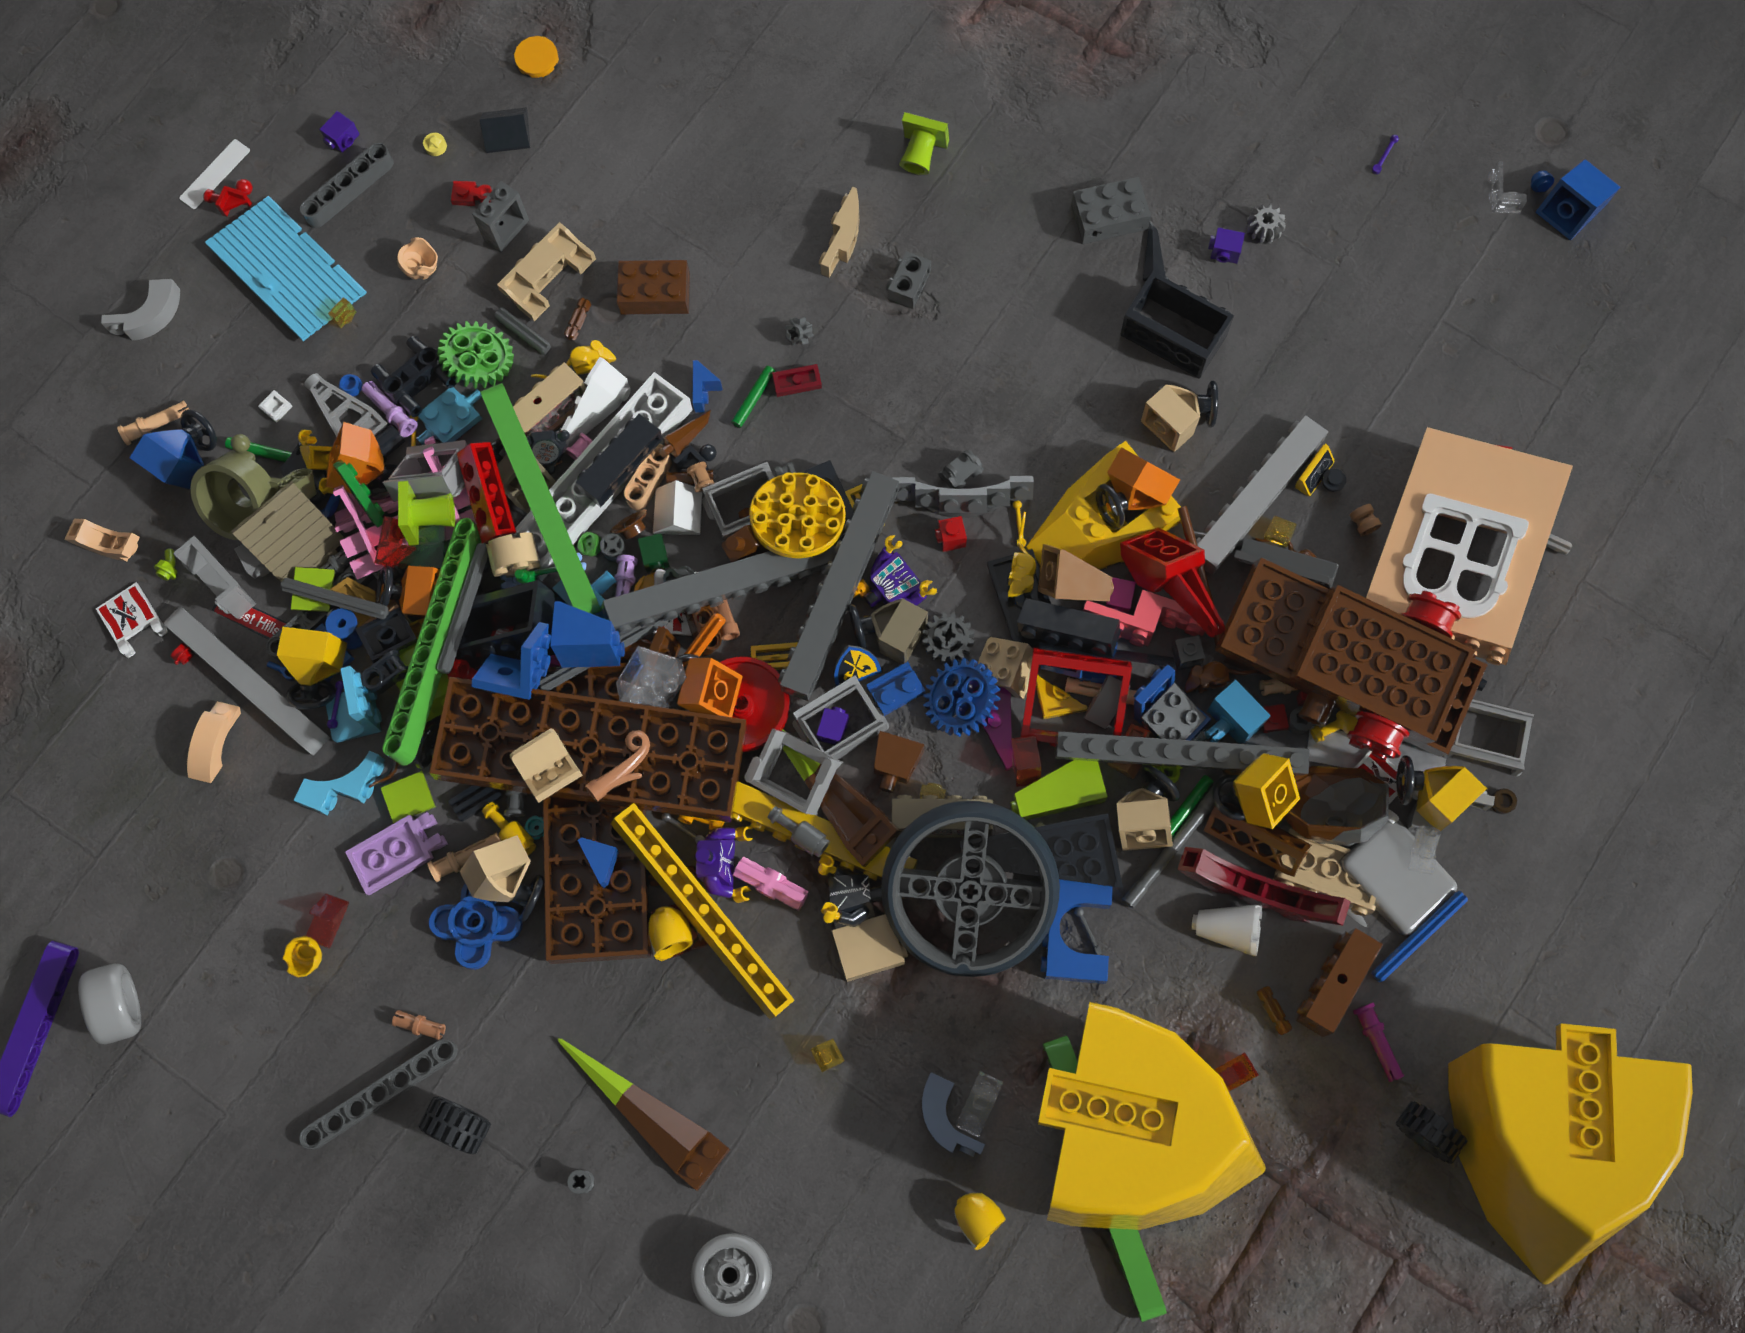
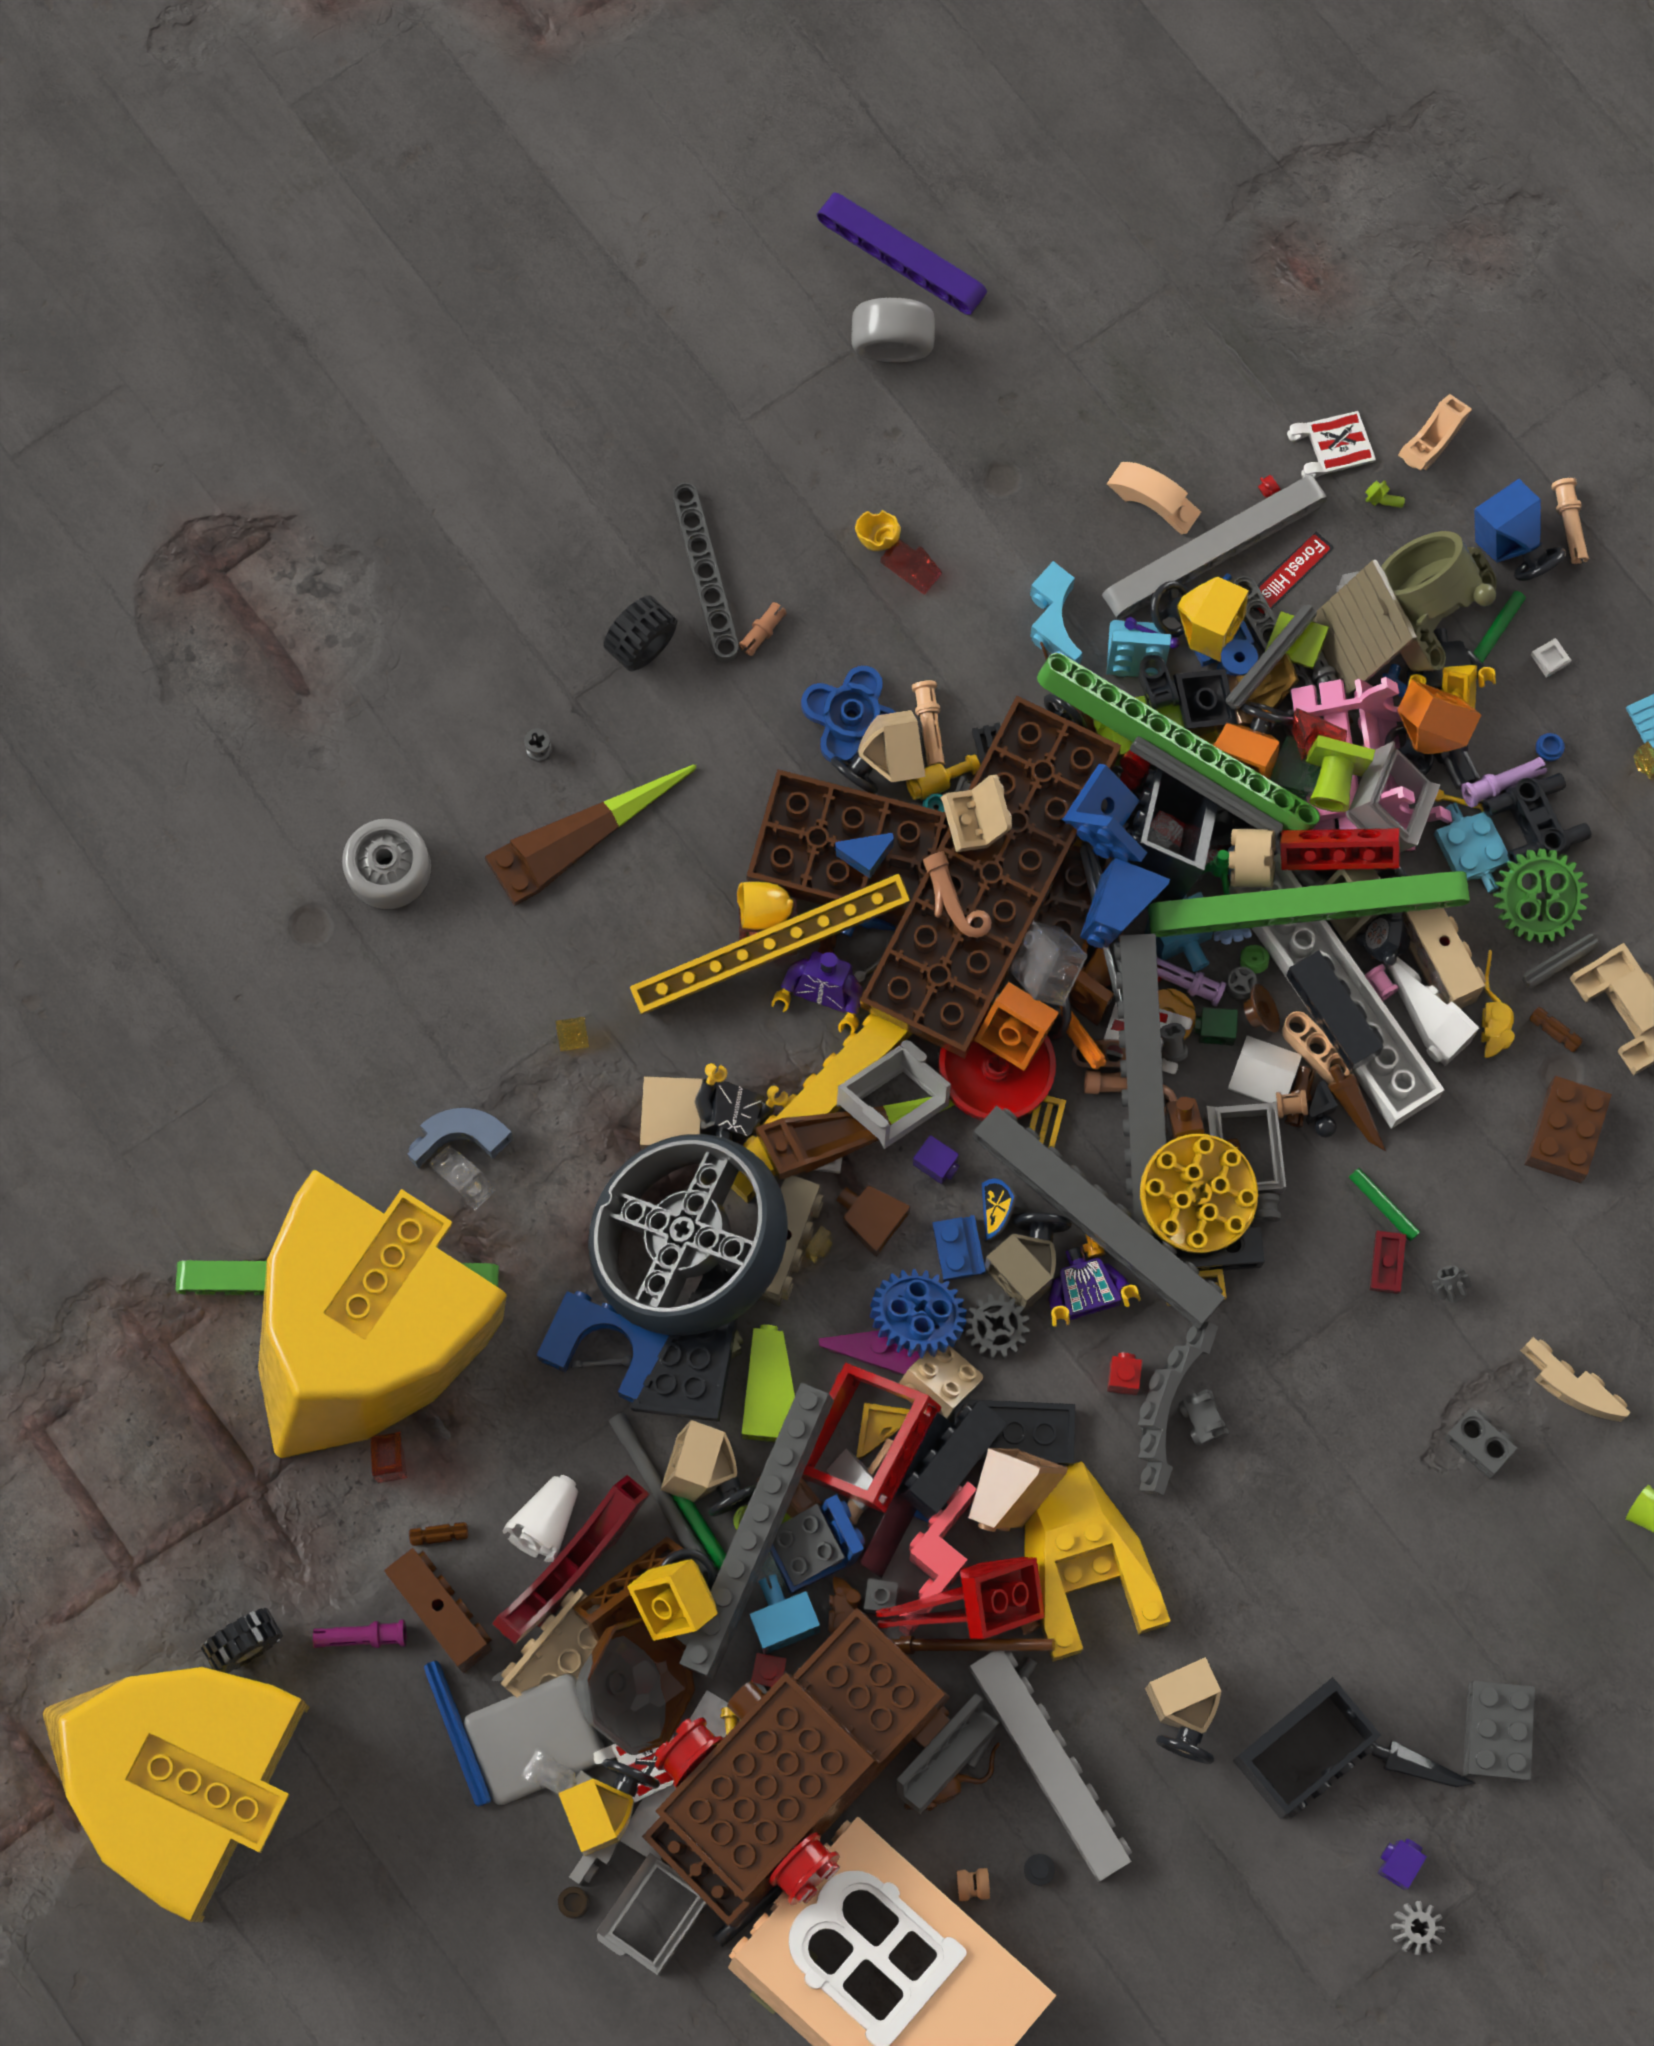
camera: 105 degrees right, 0 degrees up
(228, 592) = (1345, 548): light grey piece -> none
(323, 390) = (1484, 746): light grey plate -> none
(360, 492) = (1384, 710): green plate -> none
(394, 852) = (961, 652): lavender tile -> none
(408, 797) = (1018, 678): lime piece -> none
(702, 383) = (1424, 1147): blue slope -> none
(770, 883) = (781, 1034): bright pink piece -> none
(803, 834) = (817, 1079): dark grey piece -> none
(829, 698) = (926, 1215): light grey piece -> none
(978, 1218) = (344, 1129): yellow piece -> none
(1017, 505) = (1089, 1458): yellow hinge -> none
(1022, 570) = (1047, 1437): yellow animal -> none
(1026, 760) = (818, 1359): clear red slope -> none
(1122, 595) = (977, 1543): dark pink brick -> none
(1136, 487) = (1106, 1615): orange piece -> none
(1280, 531) = (995, 1774): clear yellow plate -> none
(1314, 472) = (1058, 1850): slope -> none

